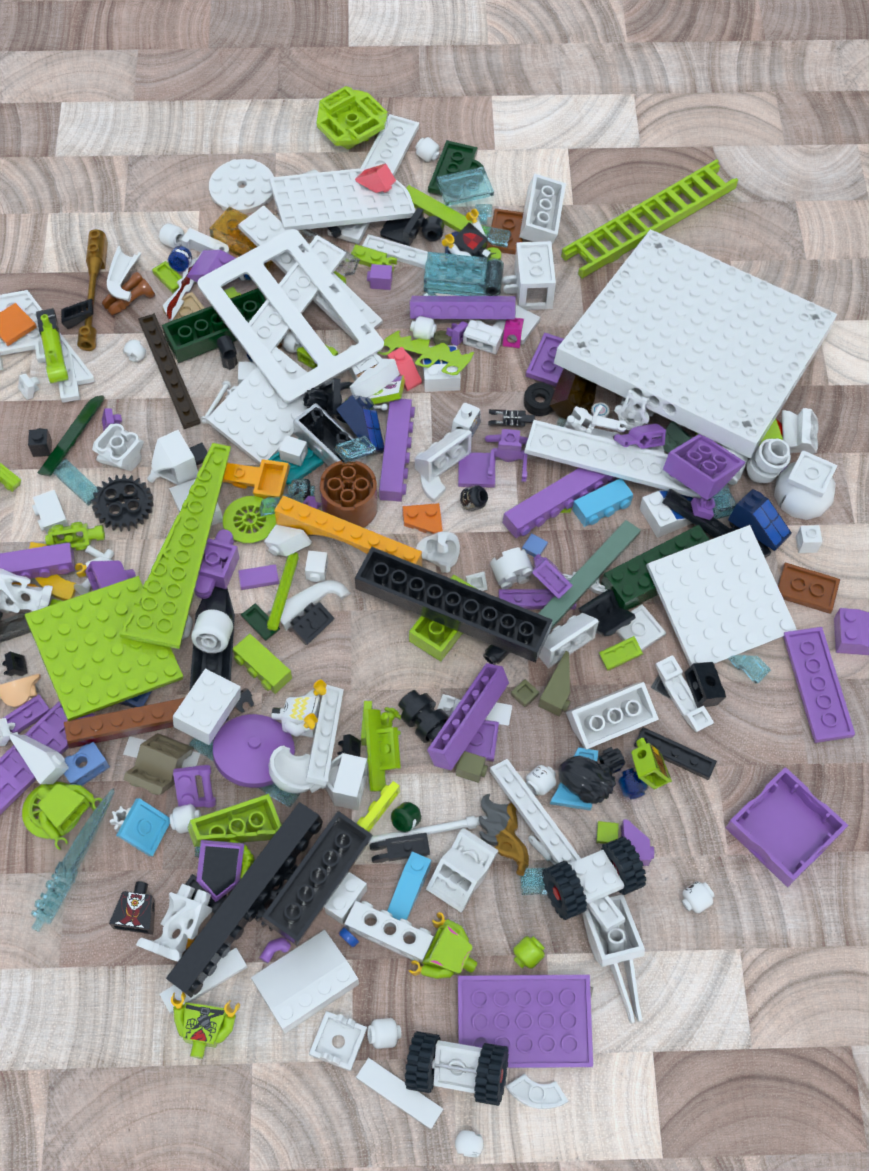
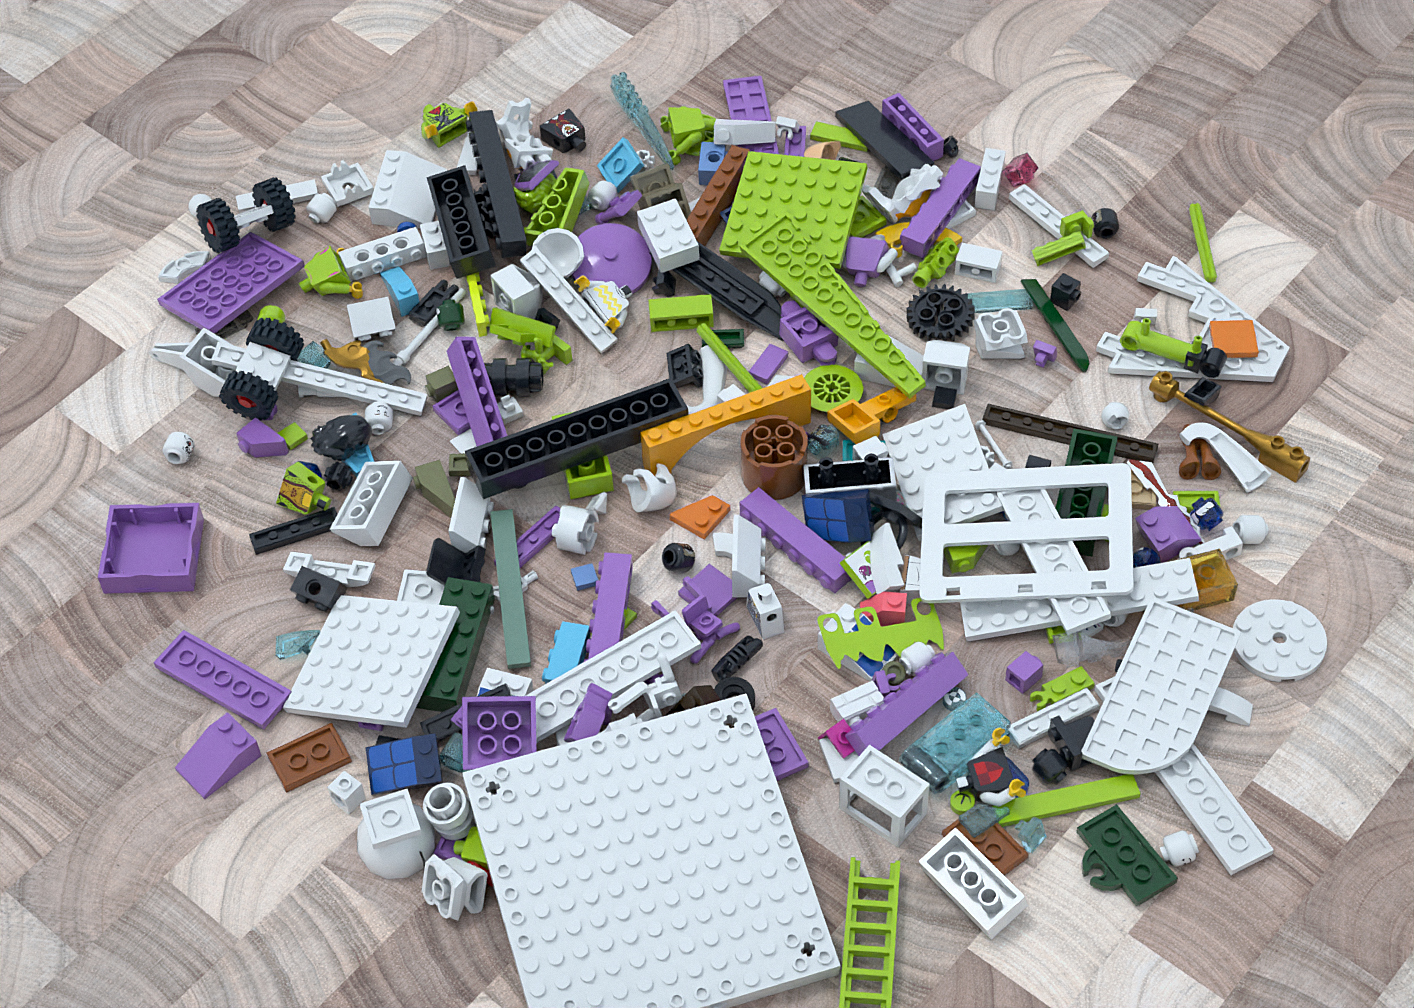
camera: 135 degrees right, 10 degrees down
(212, 631) = (736, 282): white head -> none
(269, 504) = (823, 402): clear light blue plate -> none
(314, 396) = (909, 497): black gear -> none
(350, 117) = (1295, 774): lime piece -> none
(355, 449) = (806, 470): clear light blue plate -> none
(376, 178) = (1155, 732): coral slope -> none
(465, 186) = (1082, 836): clear light blue tile -> none
(550, 576) = (539, 547): medium lavender piece -> none
(621, 653) = (414, 556): lime plate -> none

